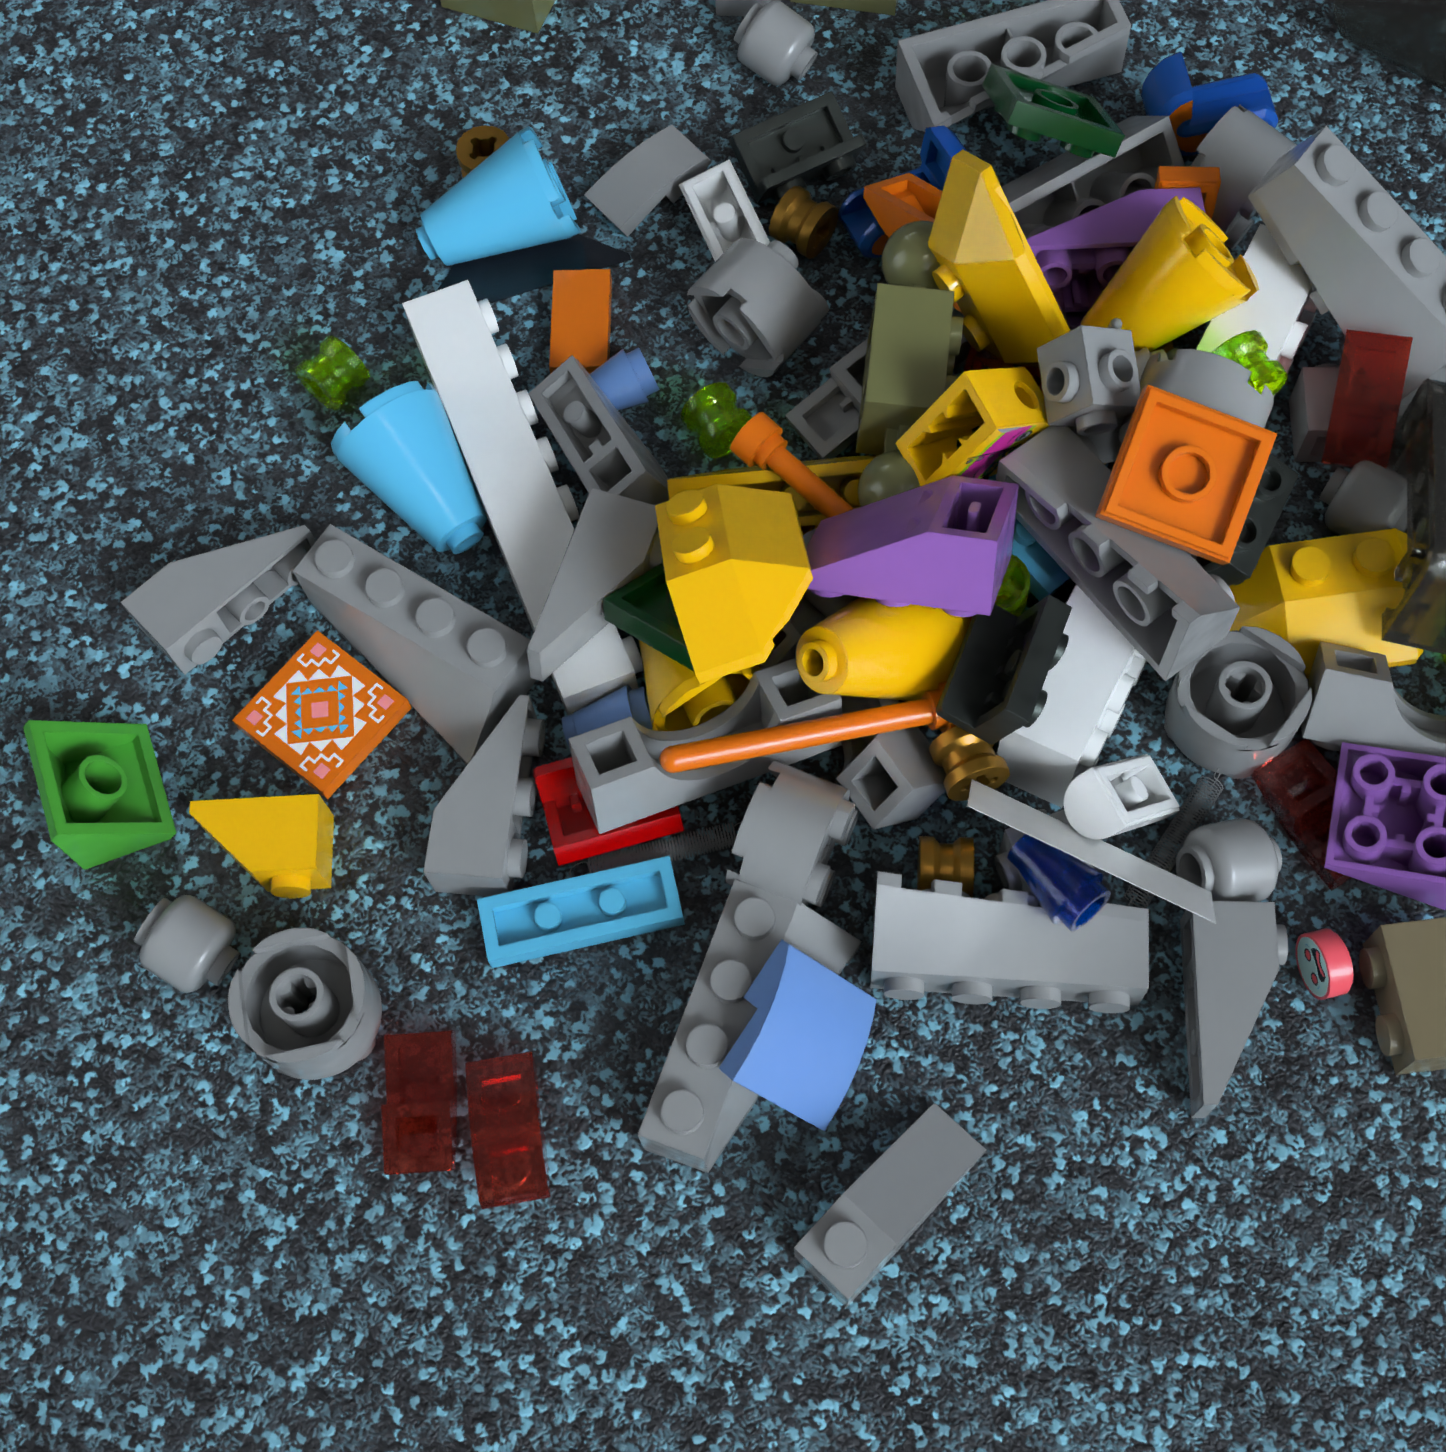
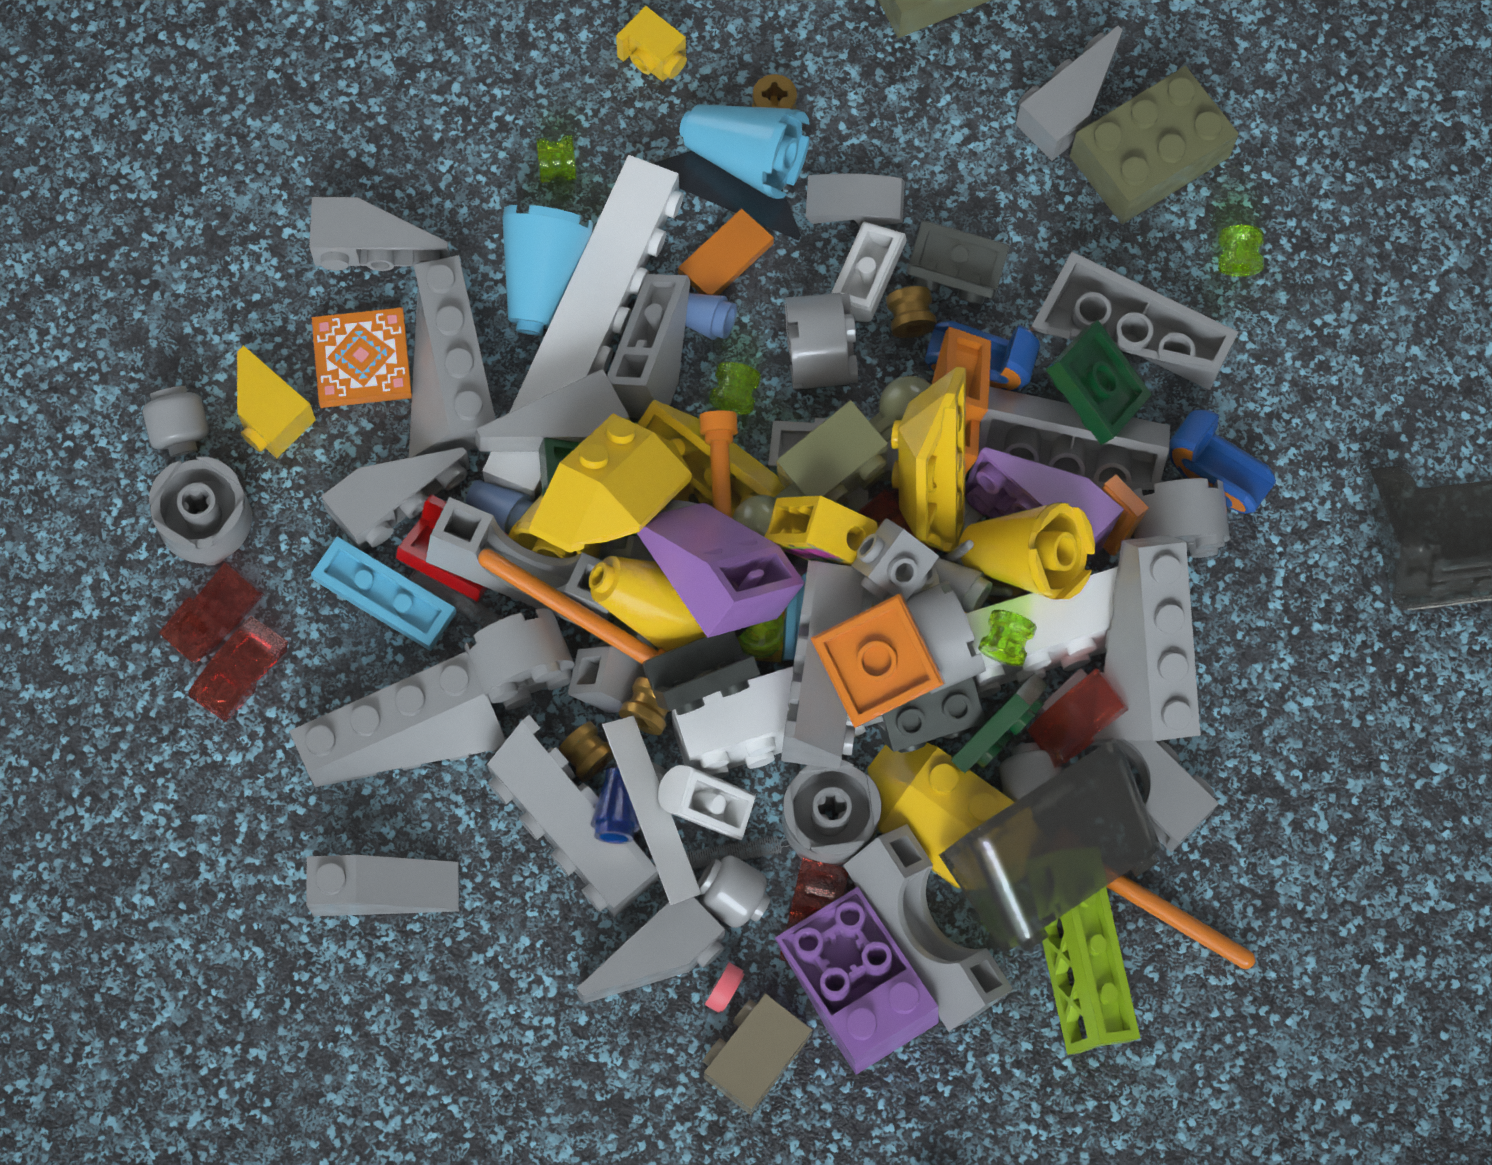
camera: 35 degrees right, 5 degrees up
(99, 788) = (209, 292): bright green slope -> none
(323, 205) = (652, 45): none -> yellow brick
(775, 42) = (1019, 180): light grey head -> none
(802, 1037) = (419, 762): medium blue slope -> none
(1310, 444) = (993, 734): none -> dark green plate

